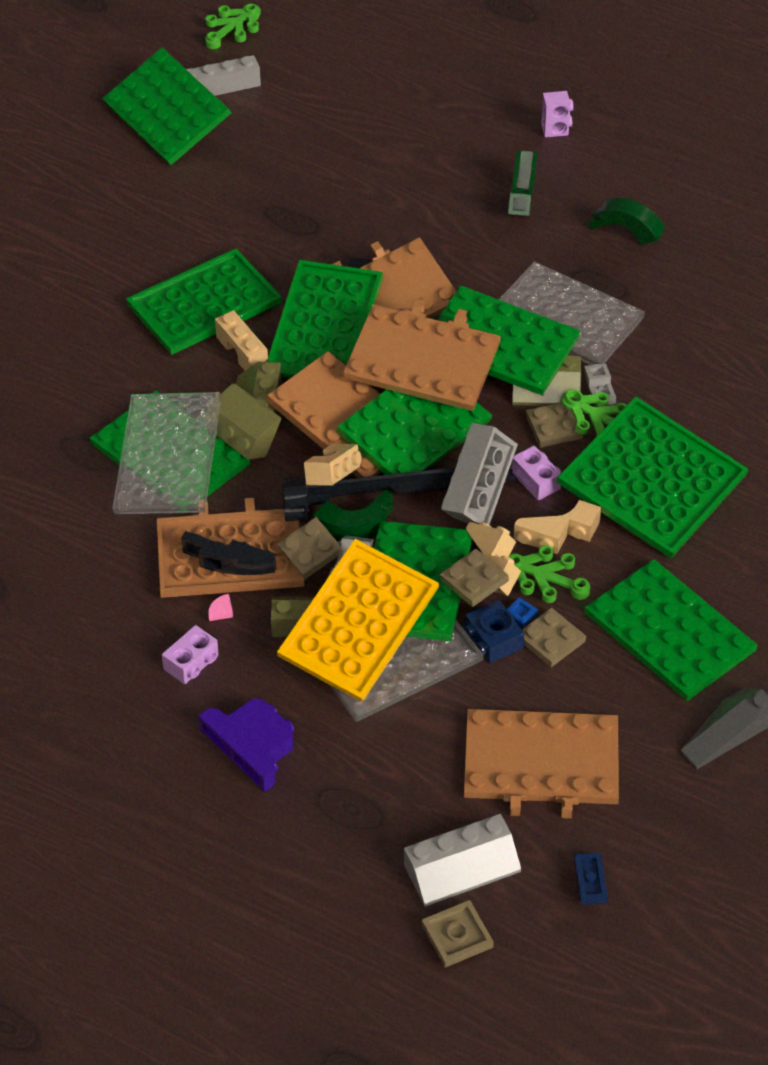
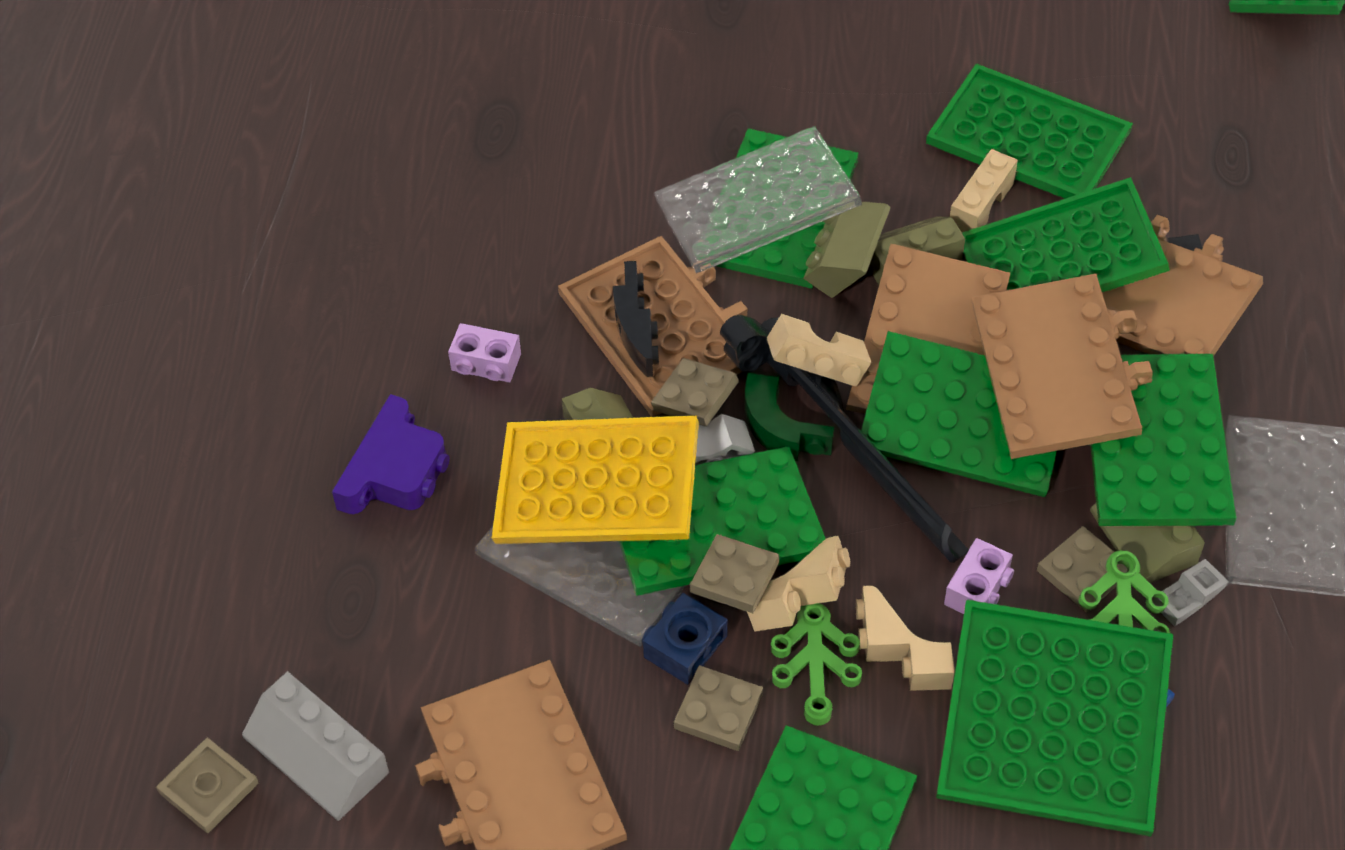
camera: 65 degrees right, 5 degrees up
(220, 608) = (573, 353): bright pink tile -> none
(479, 475) = (904, 511): light grey slope -> none
(522, 612) = (740, 658): blue tile -> none

